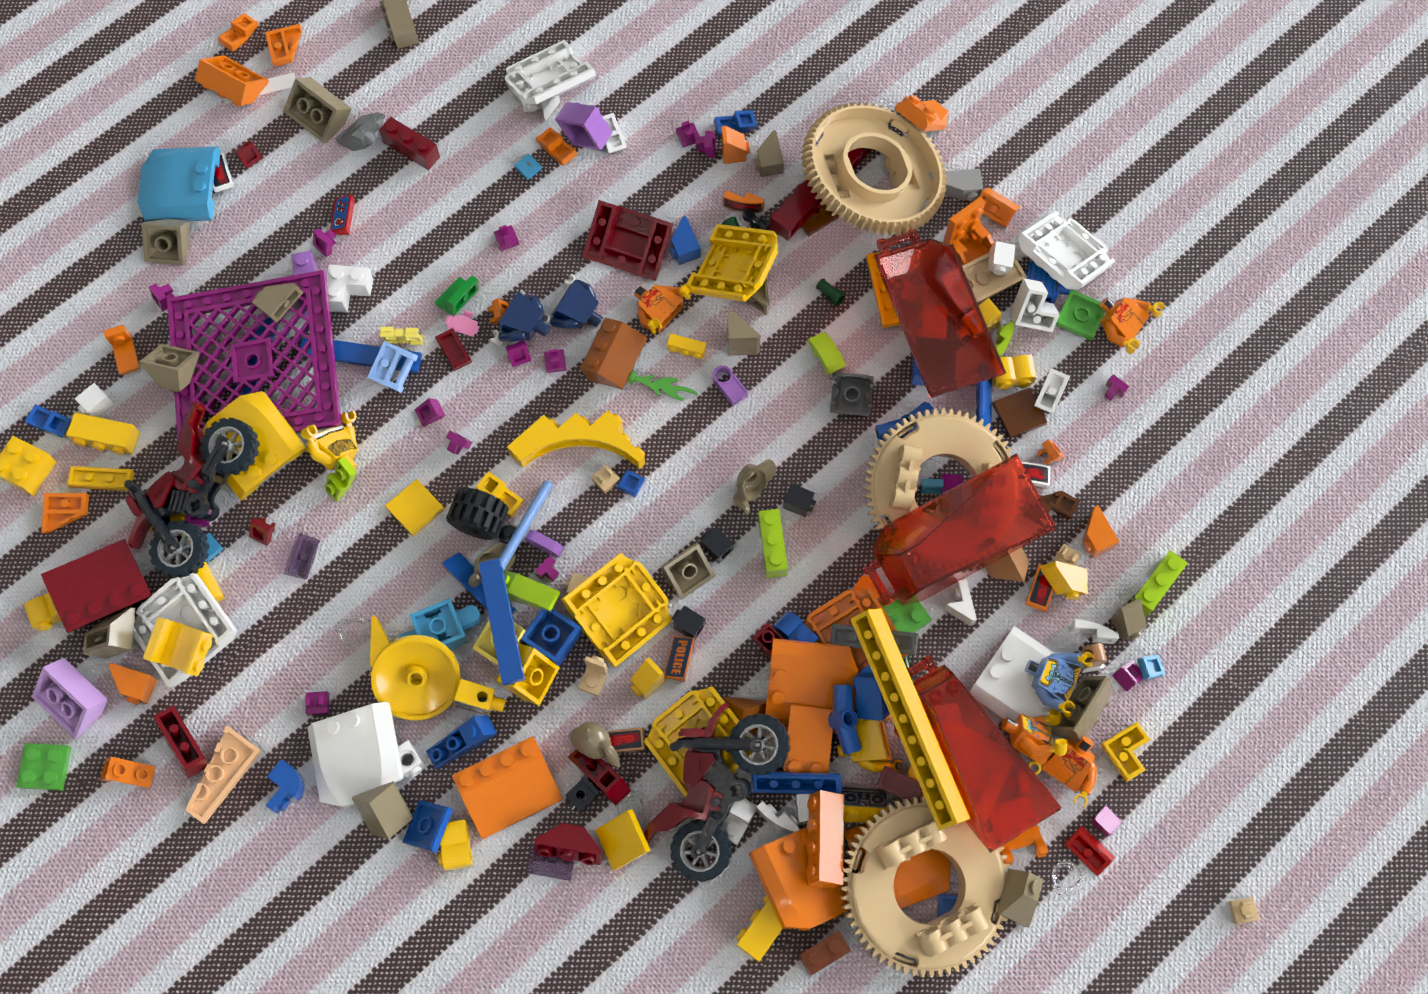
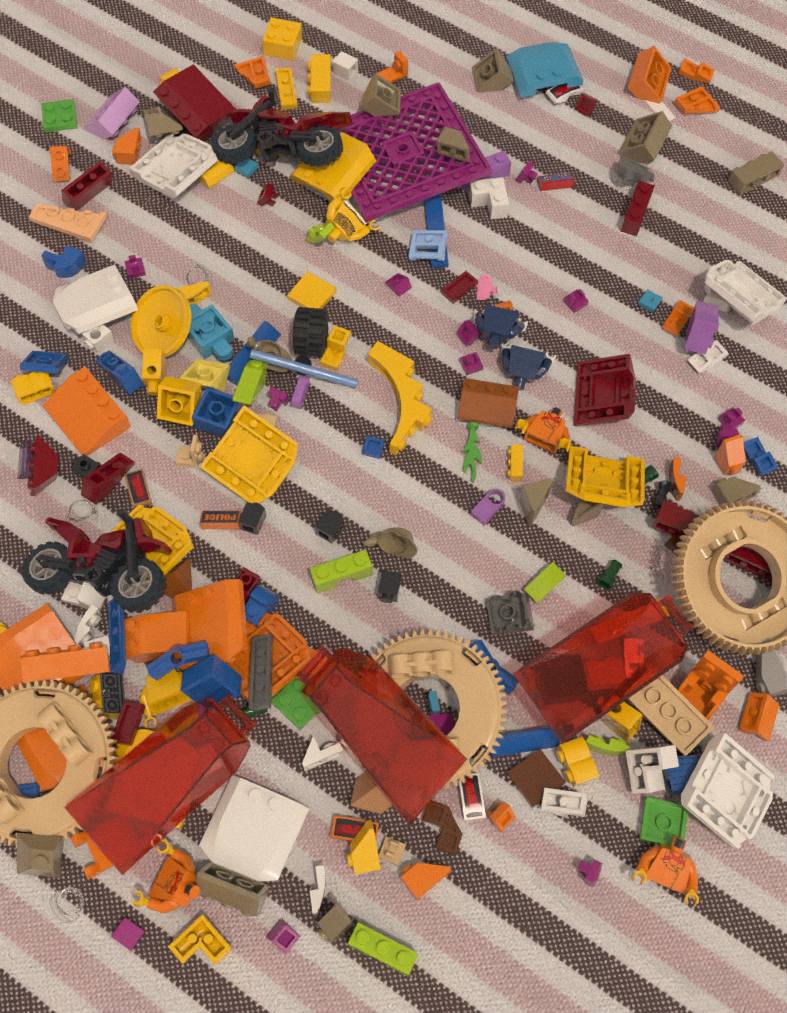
camera: 75 degrees right, 5 degrees down
(48, 421) = (323, 43): blue slope -> none
(160, 295) = (446, 81): magenta tile -> none
(178, 646) = (158, 161): yellow panel -> none
(301, 556) = (252, 228): clear purple slope -> none
(383, 810) = (50, 327): dark tan slope -> none
(400, 335) = (457, 244): light yellow piece -> none
(457, 295) = (508, 277): green panel -> none
(457, 442) = (375, 307): magenta tile -> none
(501, 622) = (213, 364): blue tile -> none
(594, 743) = (130, 466): dark tan hair -> none
(605, 479) = (372, 426): tan tile -> none
(622, 840) = (51, 505): yellow tile -> none
(647, 679) = (194, 495): yellow slope -> none
(684, 243) = (617, 437): blue slope -> none
(688, 571) = (300, 507): dark tan slope -> none
(910, 719) = (176, 707): yellow brick -> none
(1001, 258) = (692, 720): white brick -> none
(1034, 736) = (192, 837): orange torso -> none
(1056, 678) = (255, 853): torso -> none
(1089, 850) = (98, 922): red slope -> none
(1099, 660) = (289, 892): medium nougat leg -> none
(1151, 667) = (293, 957): dark azure tile -> none

